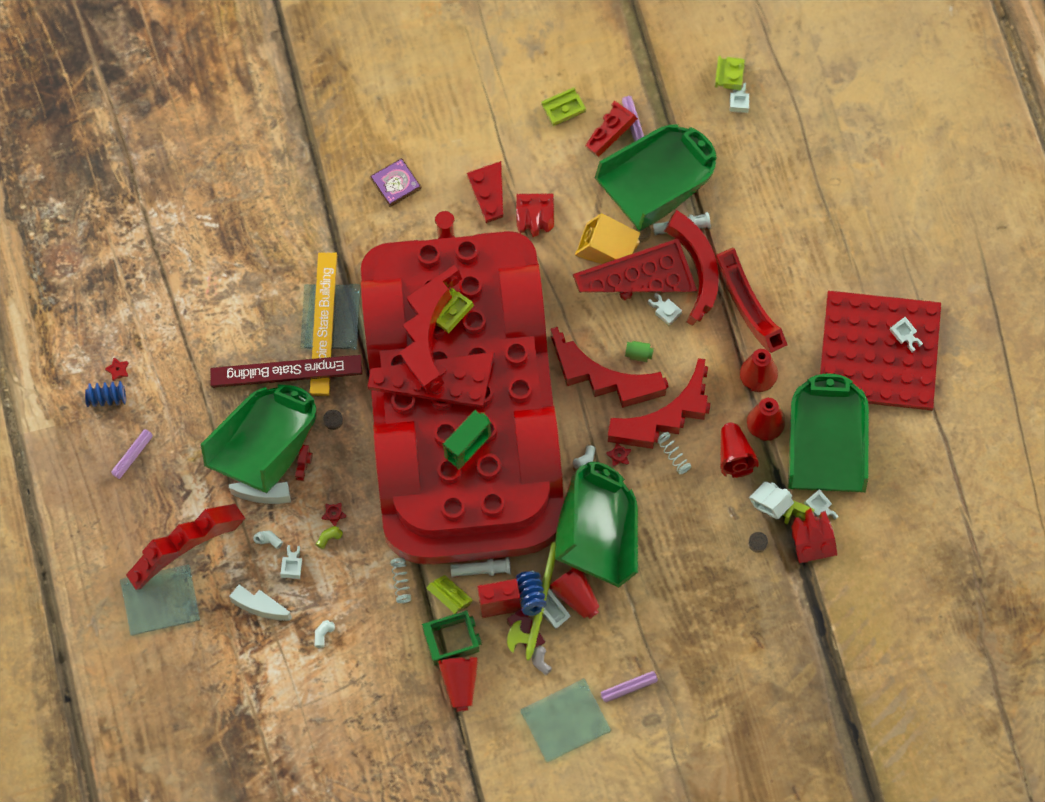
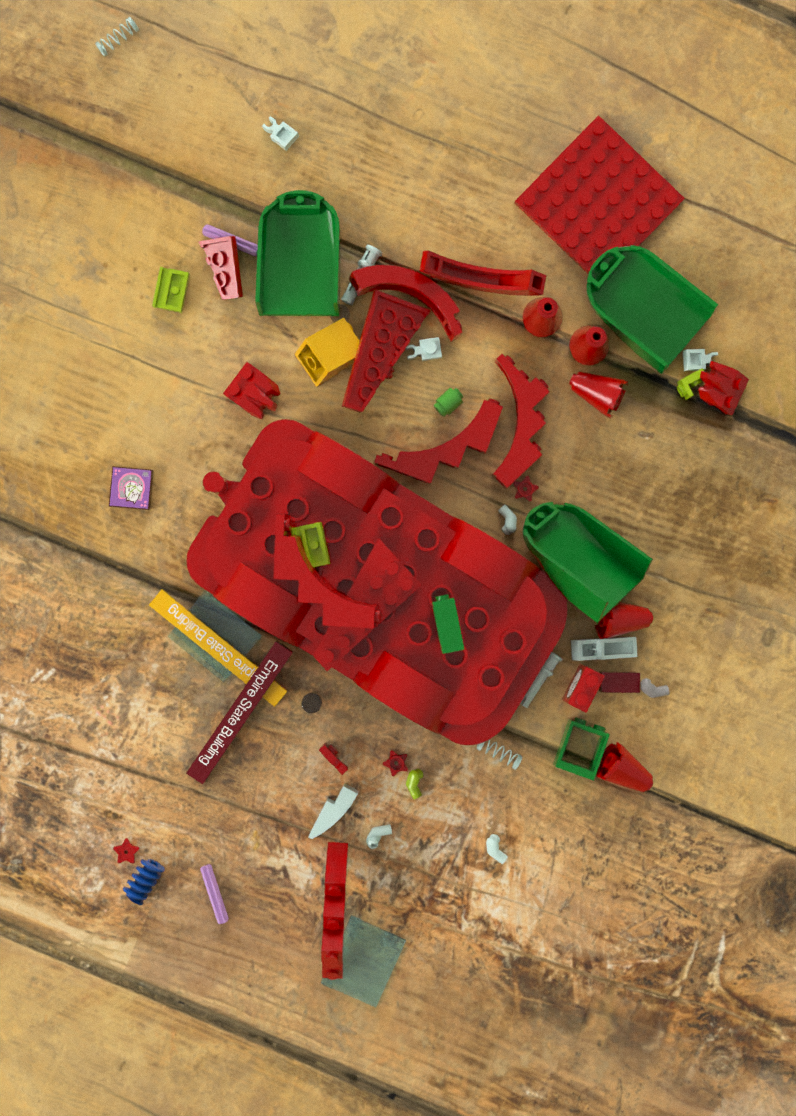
camera: 55 degrees left, 20 degrees up
(259, 604) = (432, 884): light aqua slope -> none
(261, 436) = (286, 777): green windscreen -> none
(291, 565) = (418, 832): light aqua plate -> none
(449, 594) = (543, 722): lime plate -> none
(487, 188) = (199, 414): red wing -> none
(515, 635) = (619, 695): lime piece -> none
(531, 592) = (602, 660): blue piece -> none
(565, 720) = (717, 706): clear light blue piece -> none
(629, 686) = (729, 634): lavender axle -> none
(684, 468) = (579, 446): light aqua piece -> none
(730, 73) = (250, 121): lime plate -> none
(758, 542) = (688, 434): clear smoke tile -> none
(771, 499) = (666, 396): light aqua brick -> none
(904, 332) = (605, 167): light aqua plate -> none

